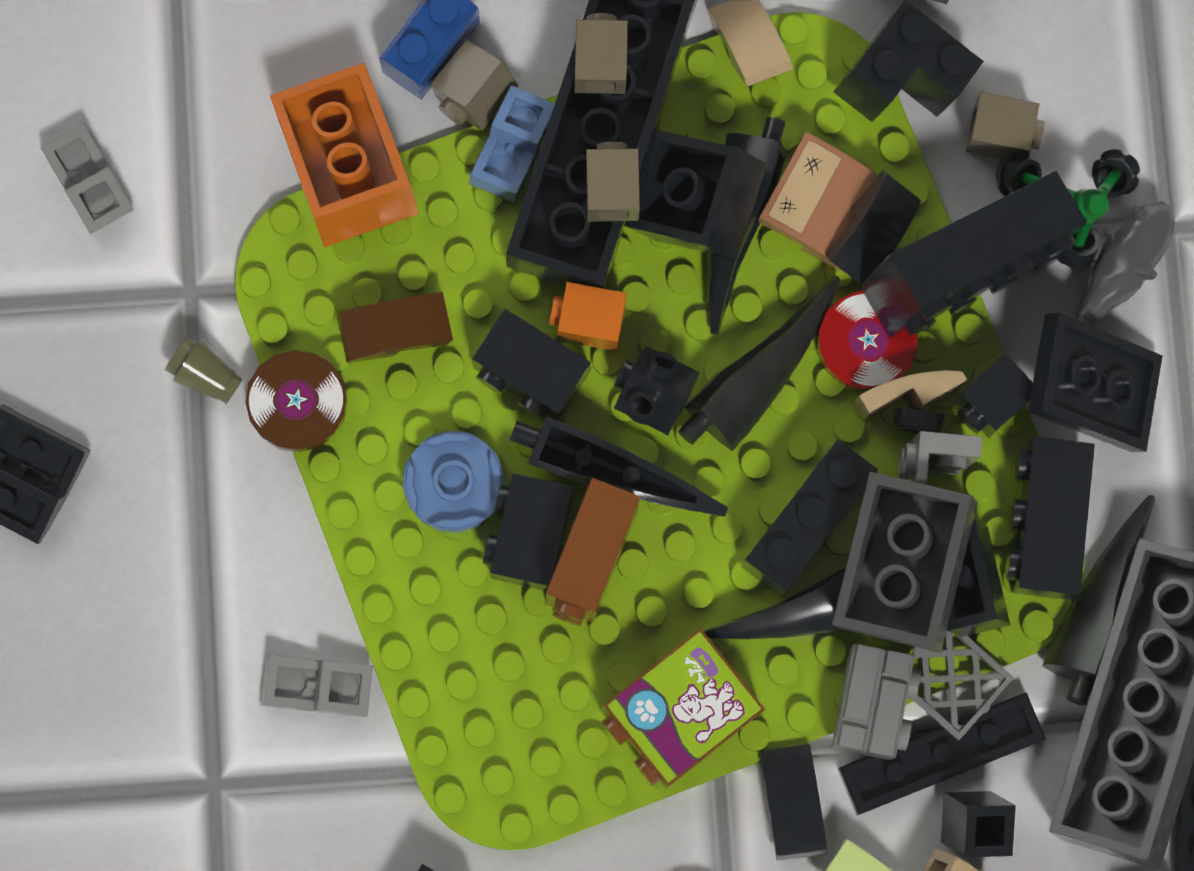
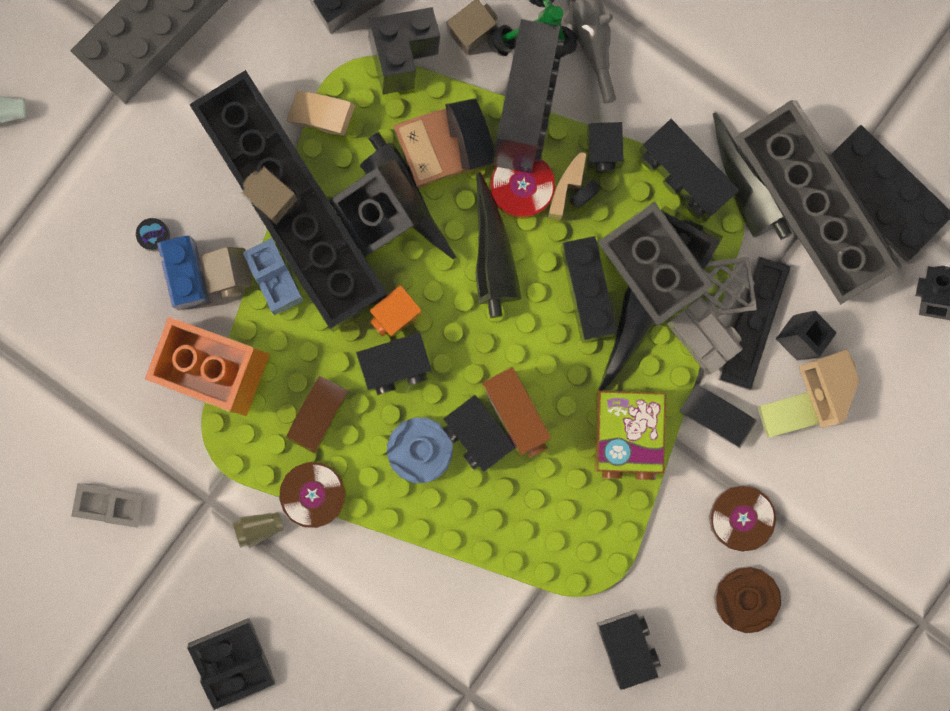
camera: 45 degrees left, 5 degrees up
(317, 685) = (463, 603): light grey slope -> none
(585, 456) = (472, 371): black piece -> none
(612, 183) = (340, 245): dark tan brick -> none
(654, 389) = (459, 311): black brick -> none
(942, 451) = (606, 205): light grey bracket -> none
(1095, 382) = (639, 92): black plate -> none

